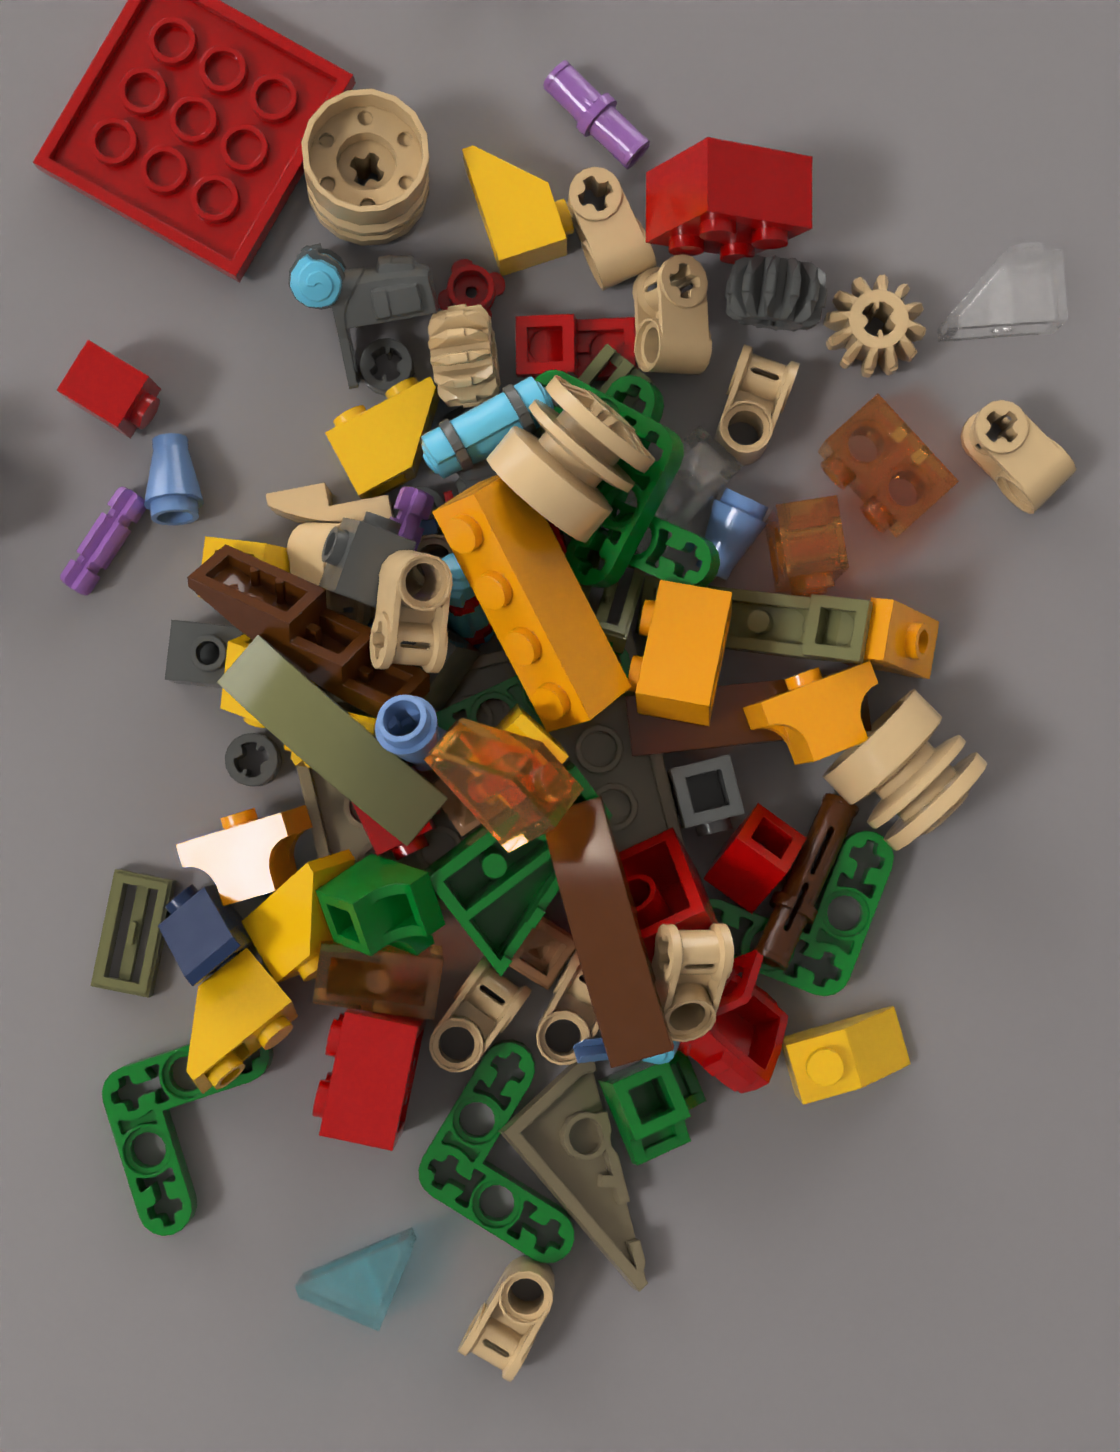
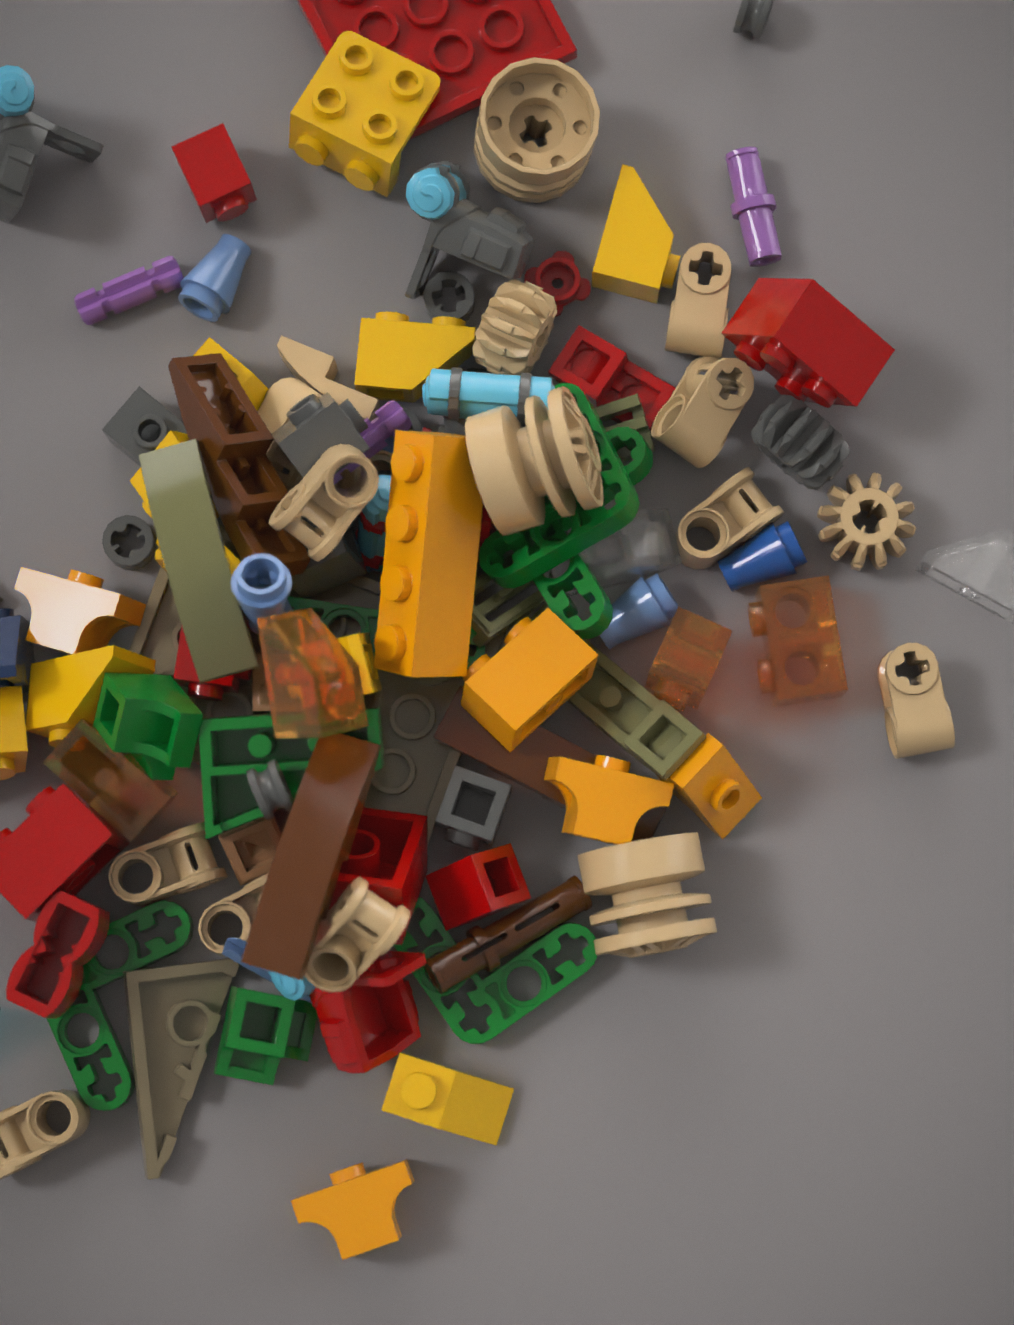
camera: 30 degrees right, 5 degrees down
(202, 251) = (361, 112): none -> yellow bracket
(442, 1176) = (51, 970): none -> red brick
(532, 898) = (270, 789): none -> dark grey bush
(807, 414) = (764, 557): none -> blue cone
(831, 1195) = (357, 1206): none -> light orange brick

